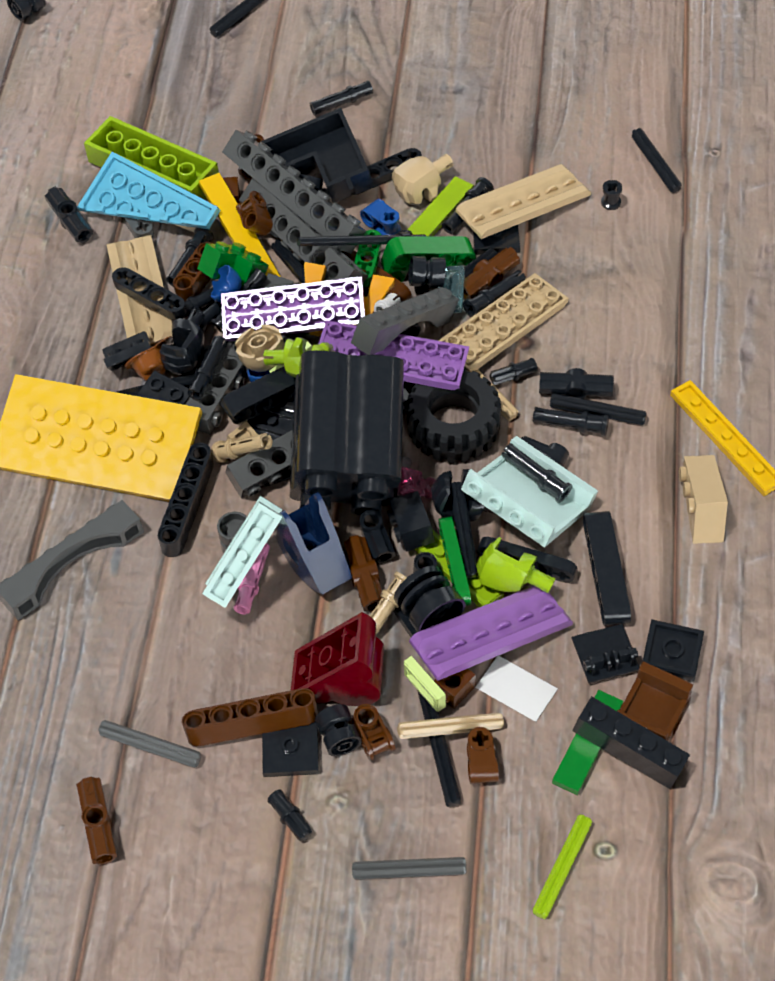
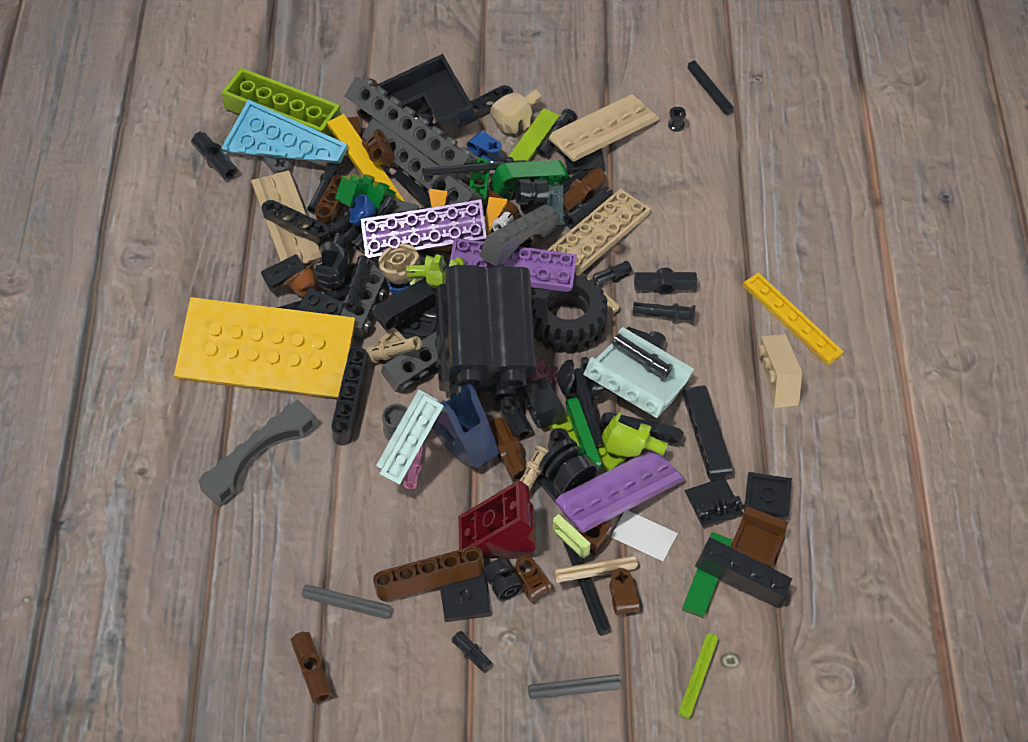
camera: 10 degrees left, 0 degrees up
(337, 99) = (444, 40): black pin -> none
(598, 408) = (685, 300): black axle -> none

